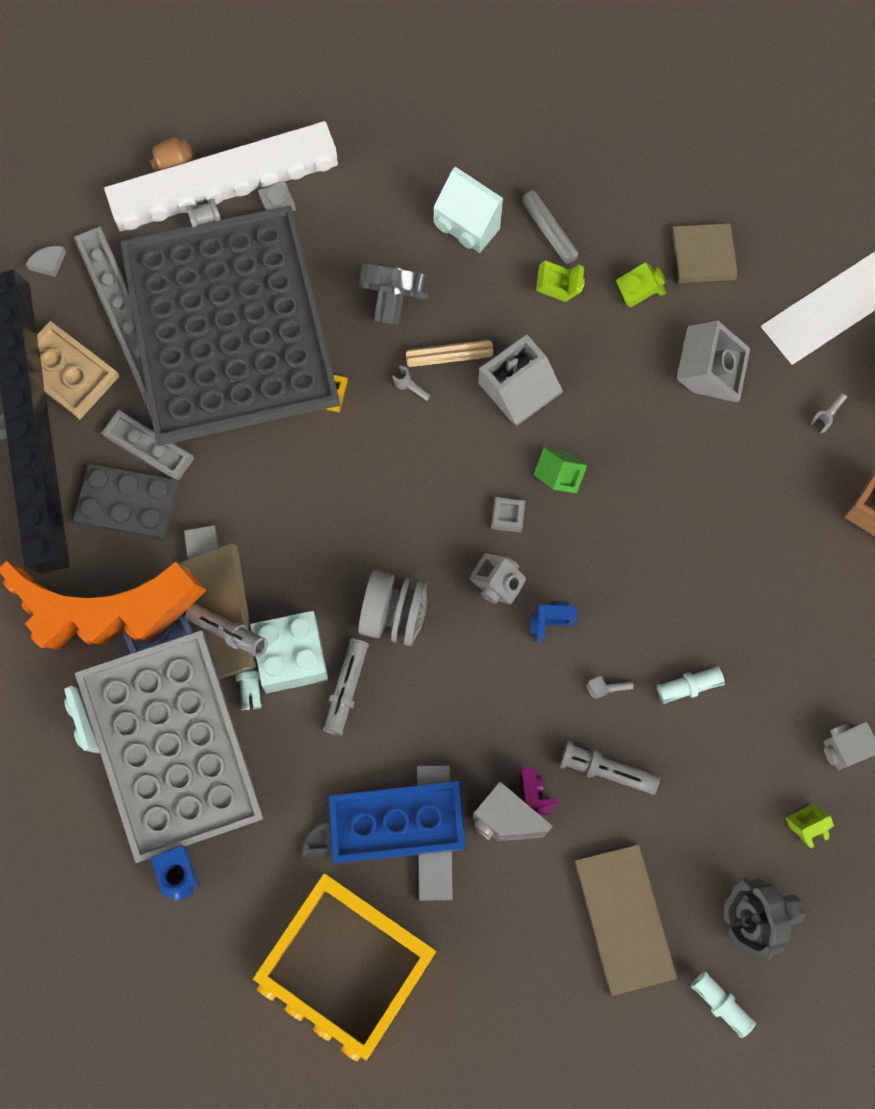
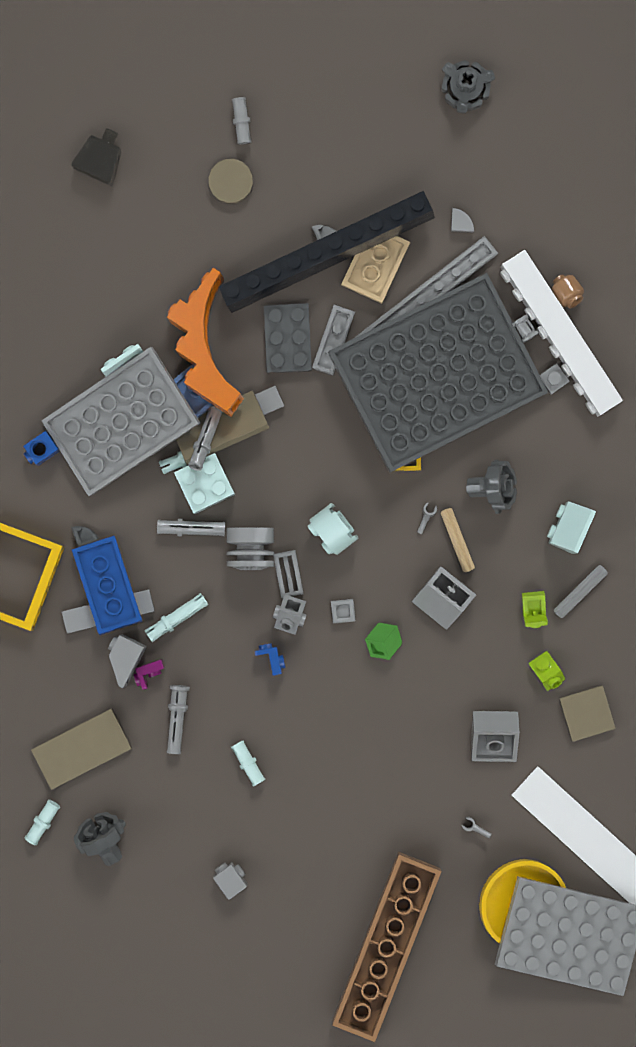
camera: 80 degrees right, 15 degrees up
(396, 495) = (332, 529): none -> light aqua brick
(442, 561) = (291, 591): none -> light grey tile
(469, 745) = (179, 615): none -> light aqua pin
(598, 688) = (231, 700): light grey hand -> none
(810, 823) = (171, 860): lime tile -> none

